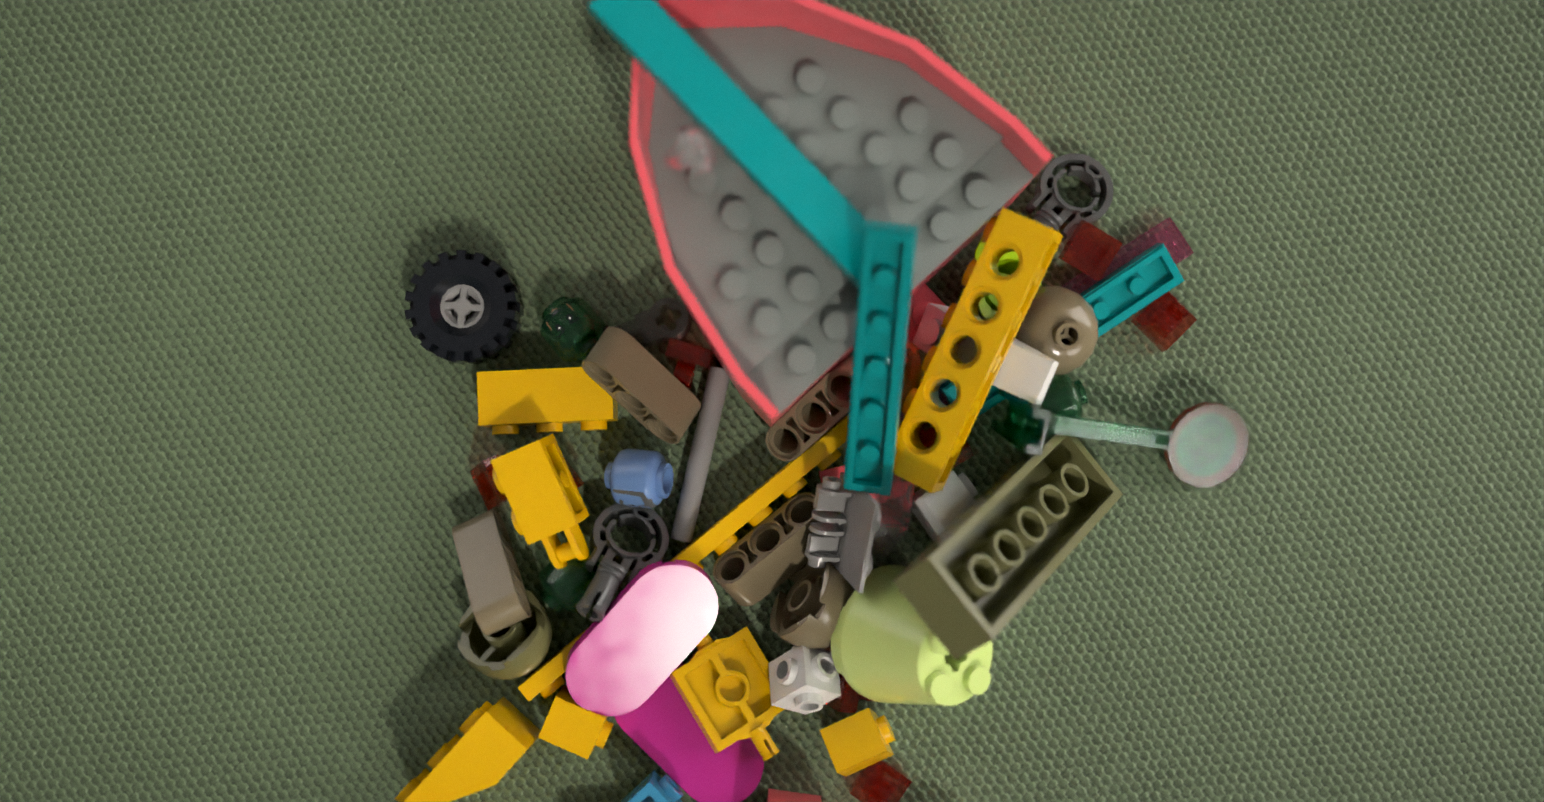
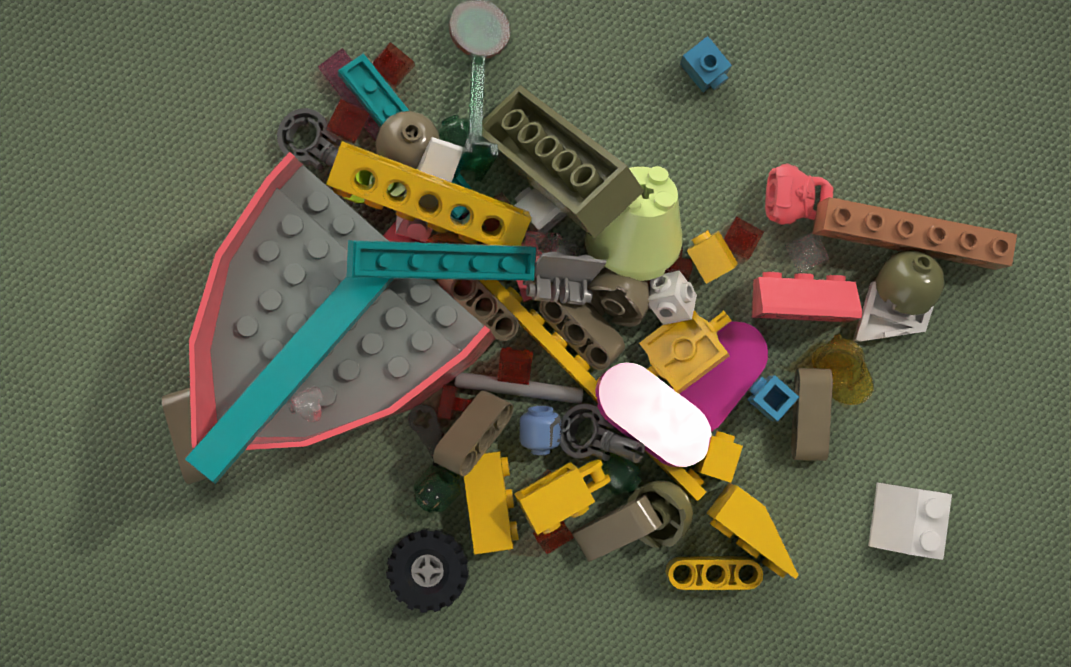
camera: 85 degrees left, 0 degrees up
(404, 716) = (727, 581): none -> yellow beam
(730, 451) = (515, 366): none -> clear red tile
(1130, 761) = (706, 65): none -> dark azure brick

